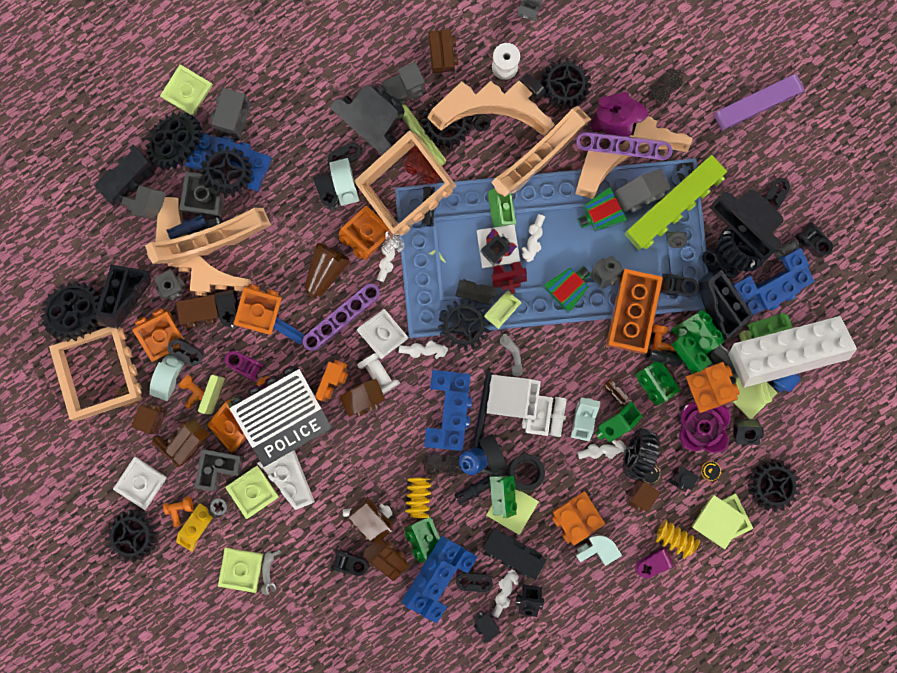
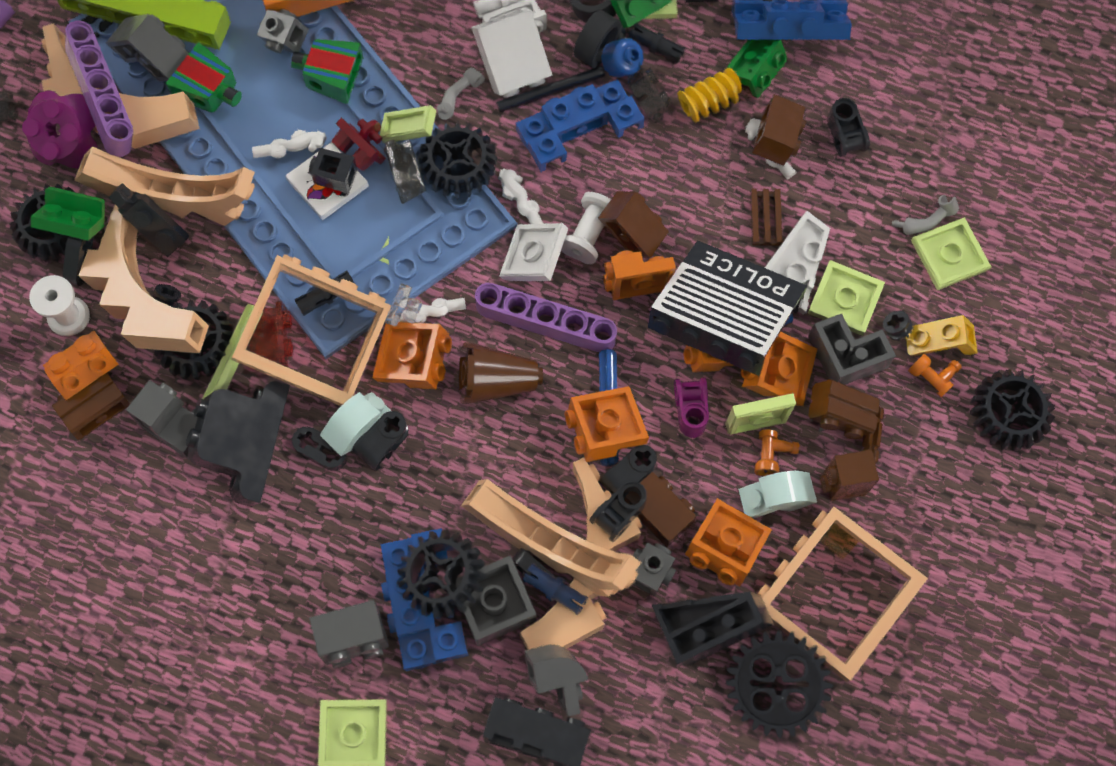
camera: 125 degrees left, 15 degrees down
(140, 483) = (938, 446): white tile -> none
(174, 140) = (429, 719): black gear -> none
(182, 354) = (720, 491): black beam -> none
(203, 281) = (615, 514): none -> black piece
(323, 487) = (765, 194): none -> reddish brown tile
(386, 558) = (810, 83): reddish brown brick -> none
(466, 55) = (79, 365): none -> orange plate
(501, 209) = (272, 206): bright green slope -> none
(530, 134) = (149, 219): none -> black hinge
(553, 90) = (70, 214): none -> green bracket

